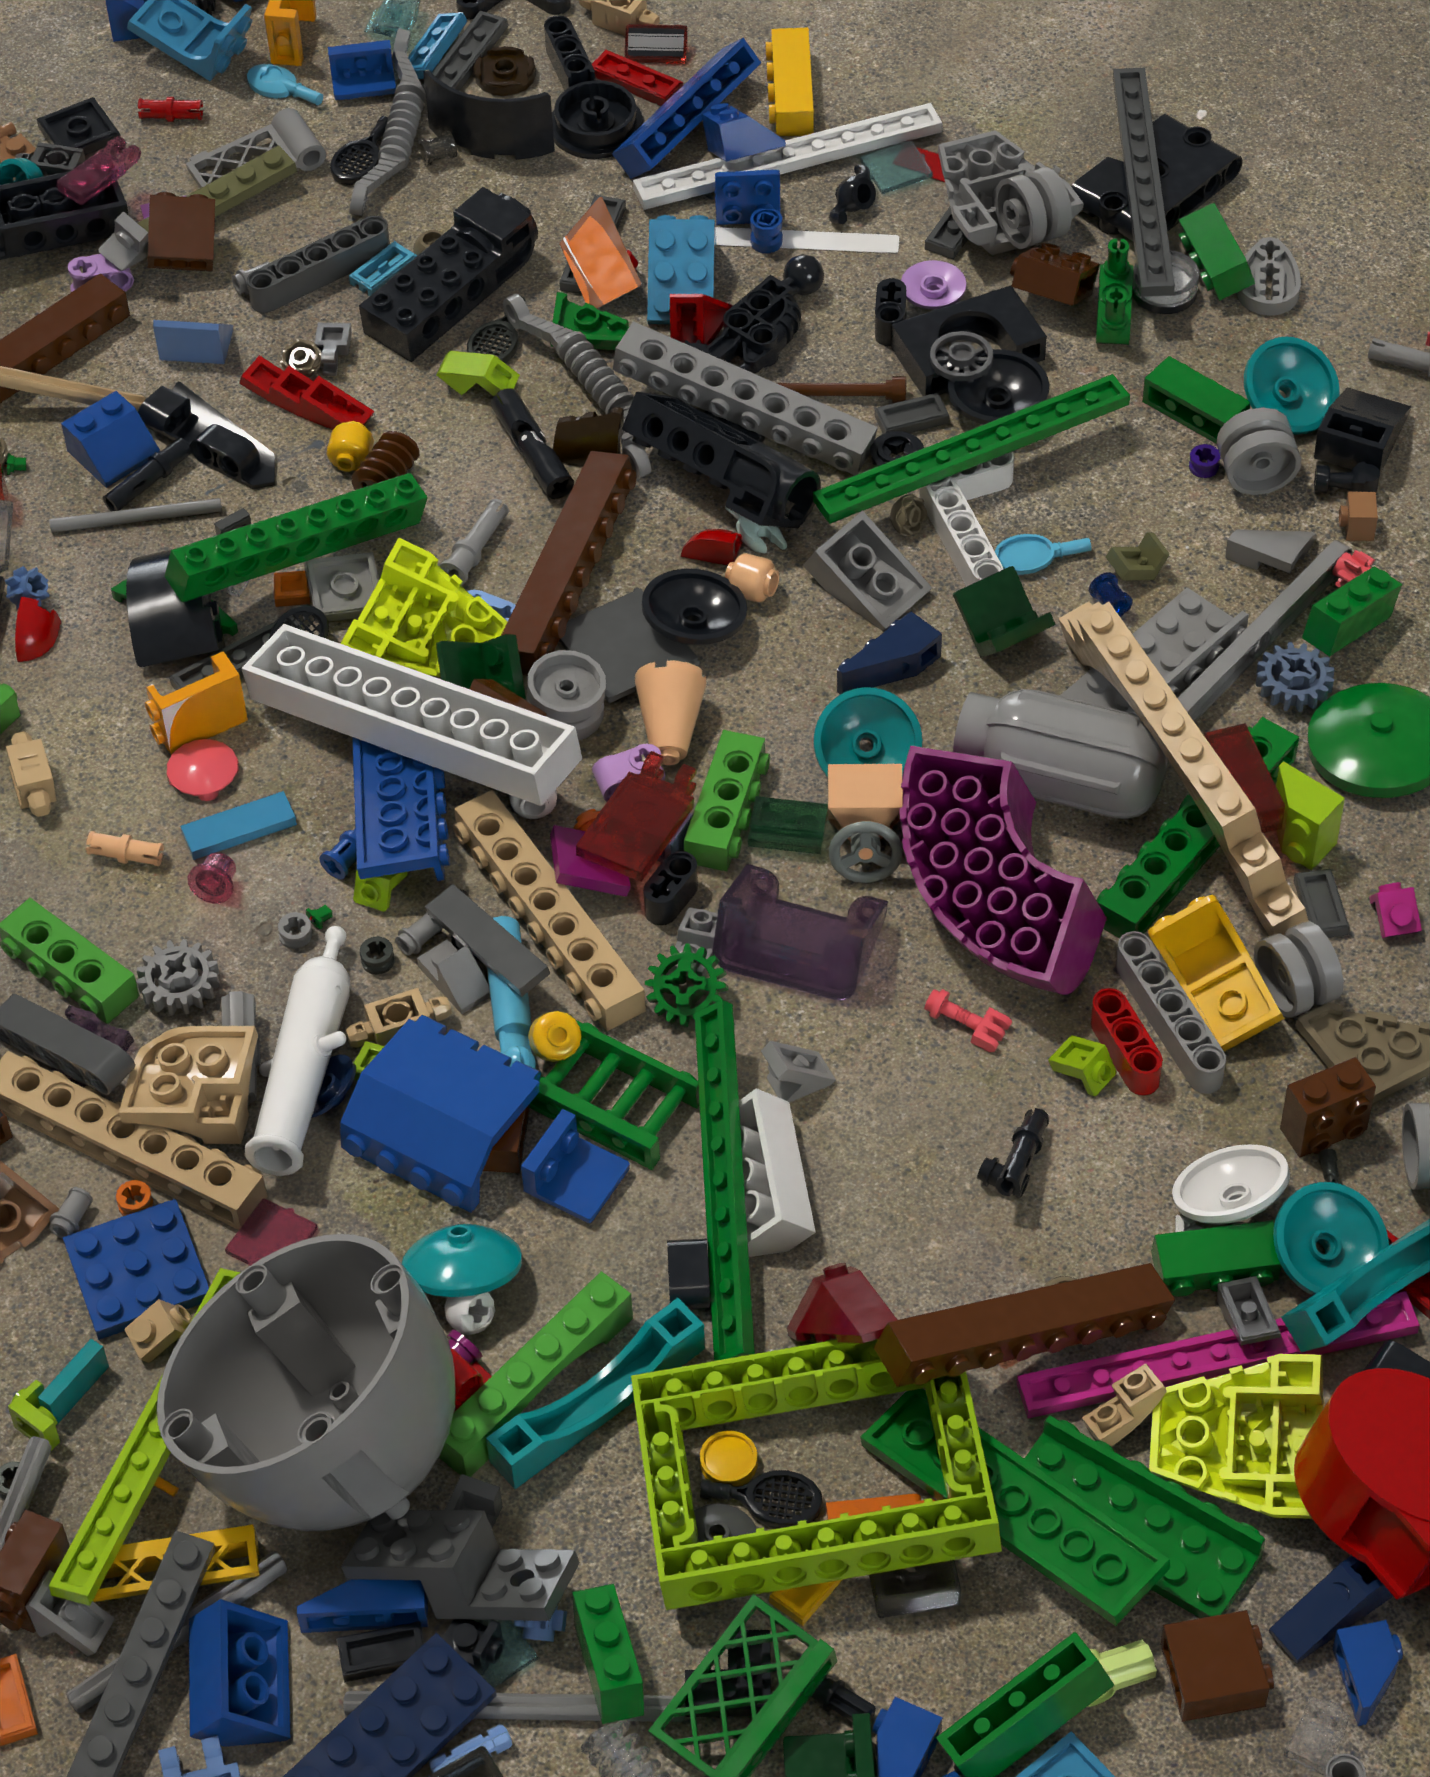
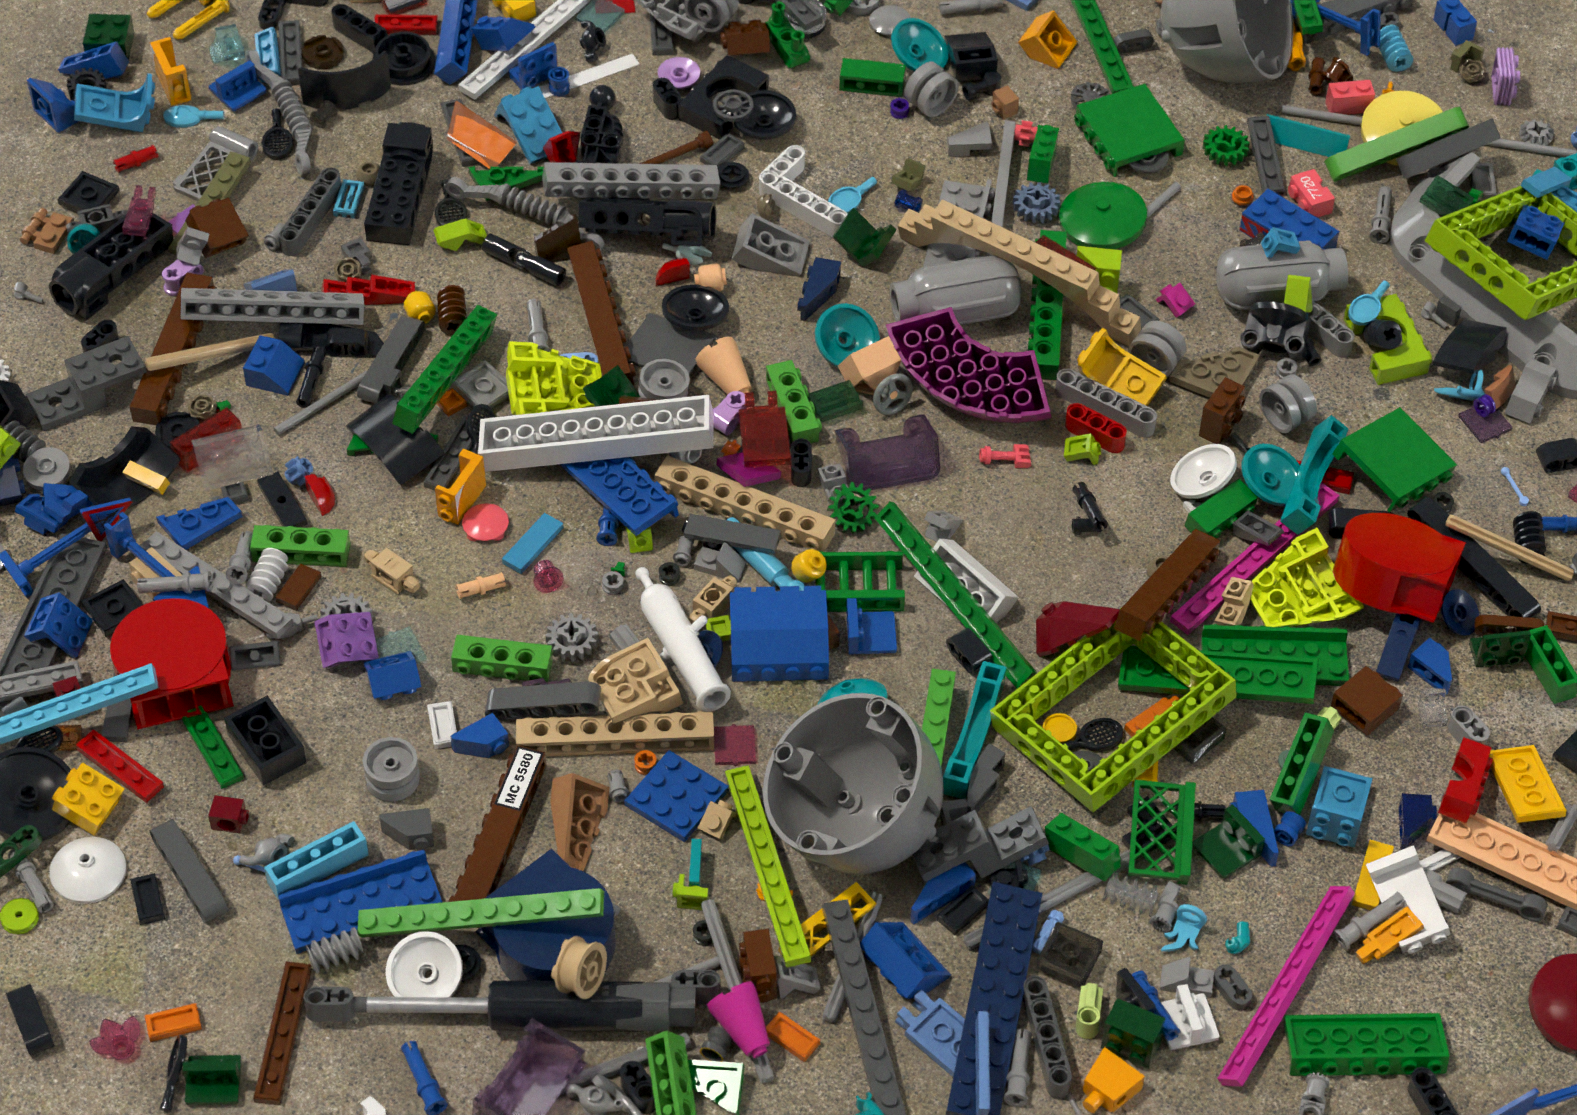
camera: 35 degrees left, 0 degrees up
(160, 361) = (272, 306): none -> light grey brick
(265, 492) = (392, 355): none -> dark grey beam
(553, 1475) = (985, 777): none -> dark grey slope
(970, 448) = (780, 154): green plate -> none
(1286, 325) = (886, 18): none -> light grey dish

